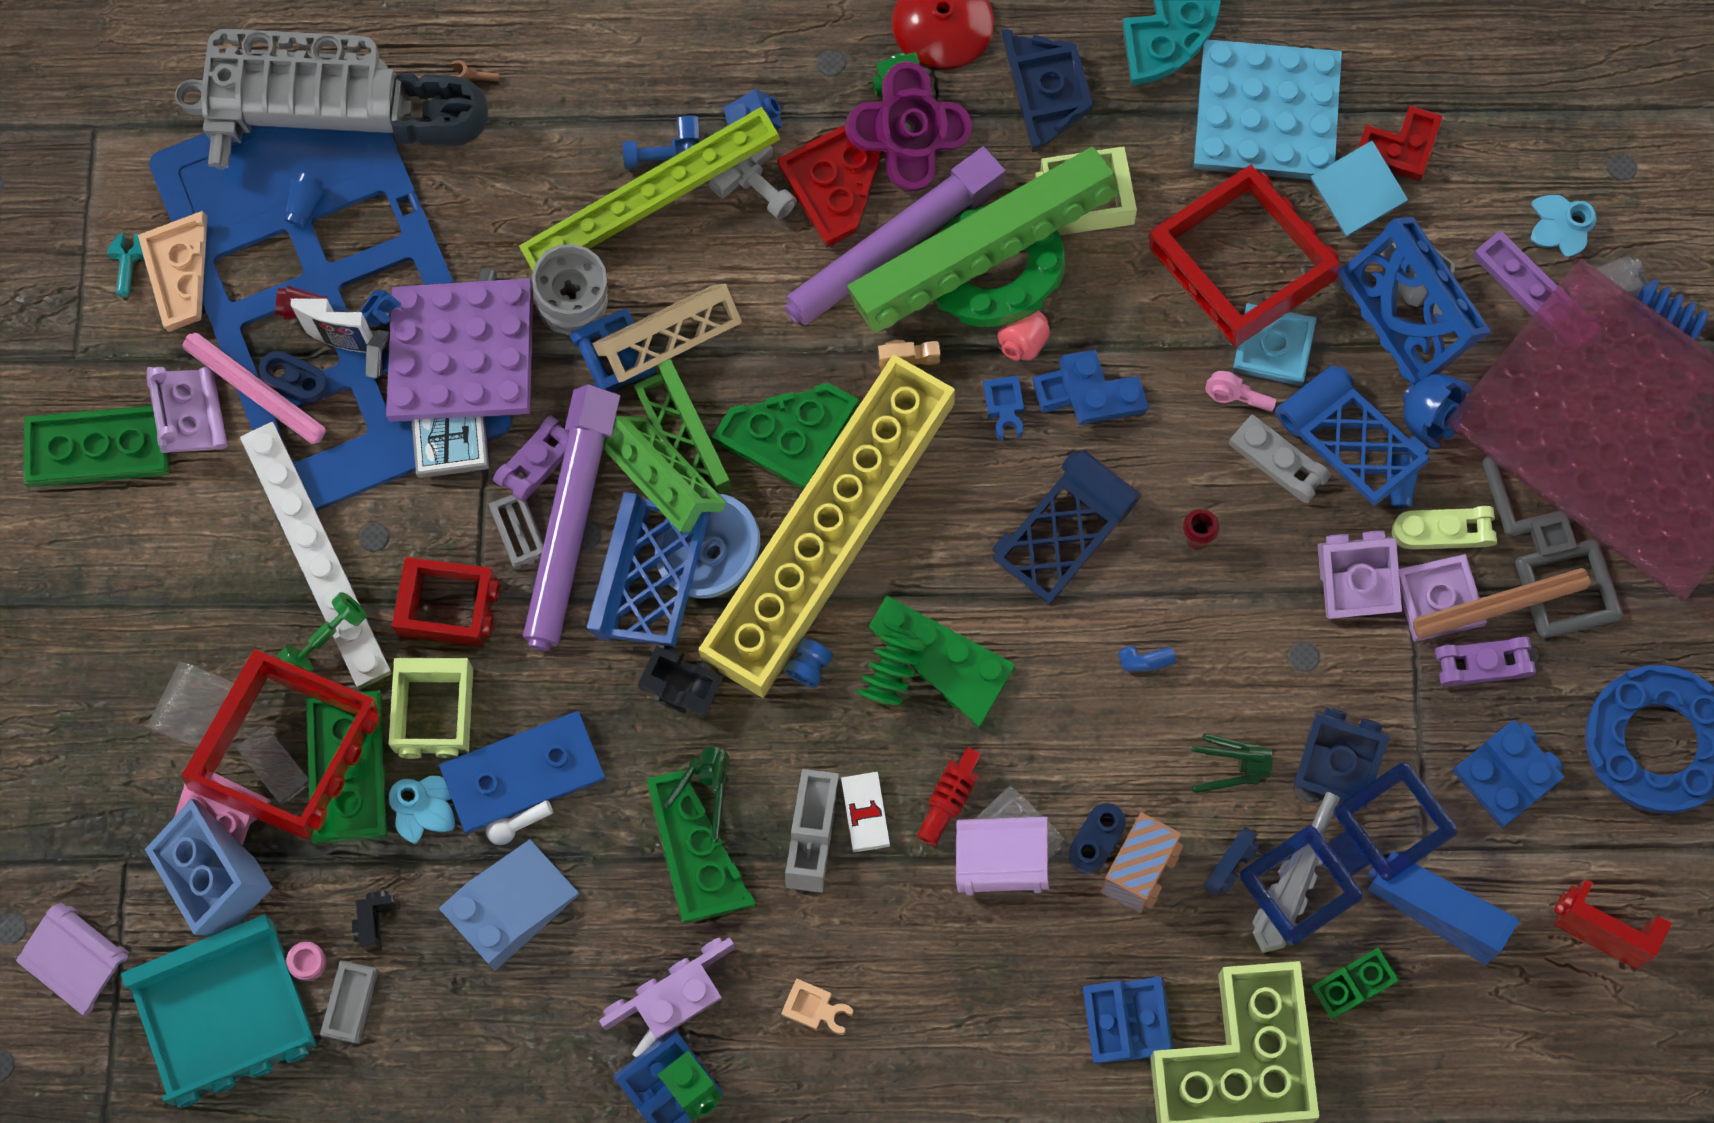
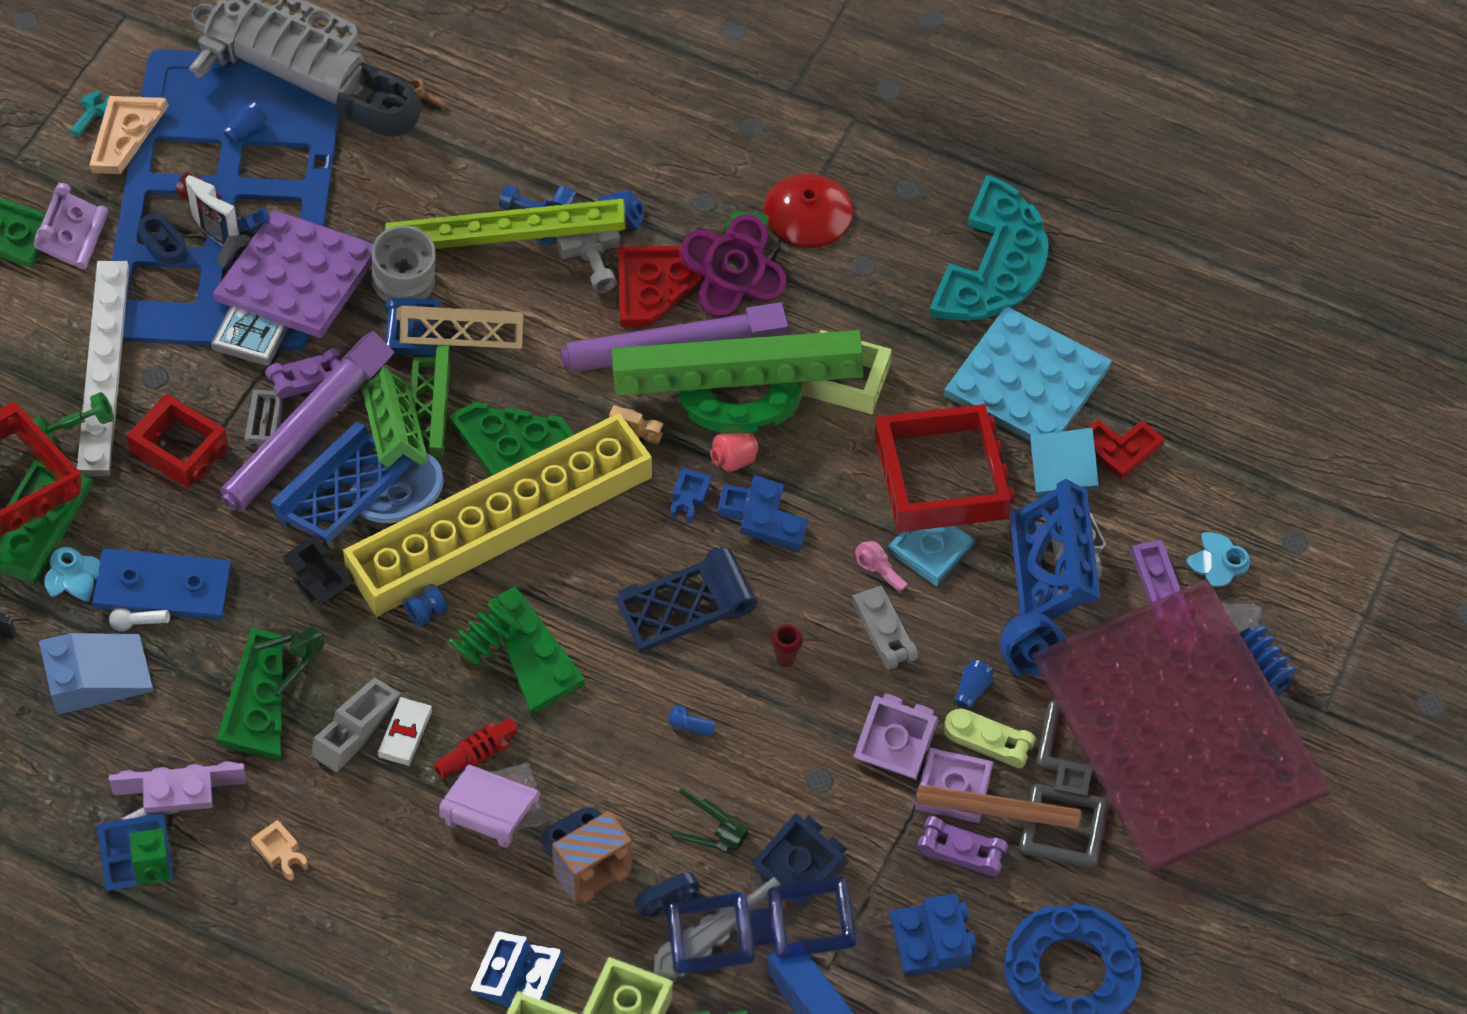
camera: 20 degrees right, 15 degrees down
(254, 388) = (129, 235): bright pink axle -> none
(430, 670) = (134, 481): yellowish green window -> none
(1047, 85) = (861, 286): dark blue wing -> none
(1316, 407) = (940, 602): blue piece -> none

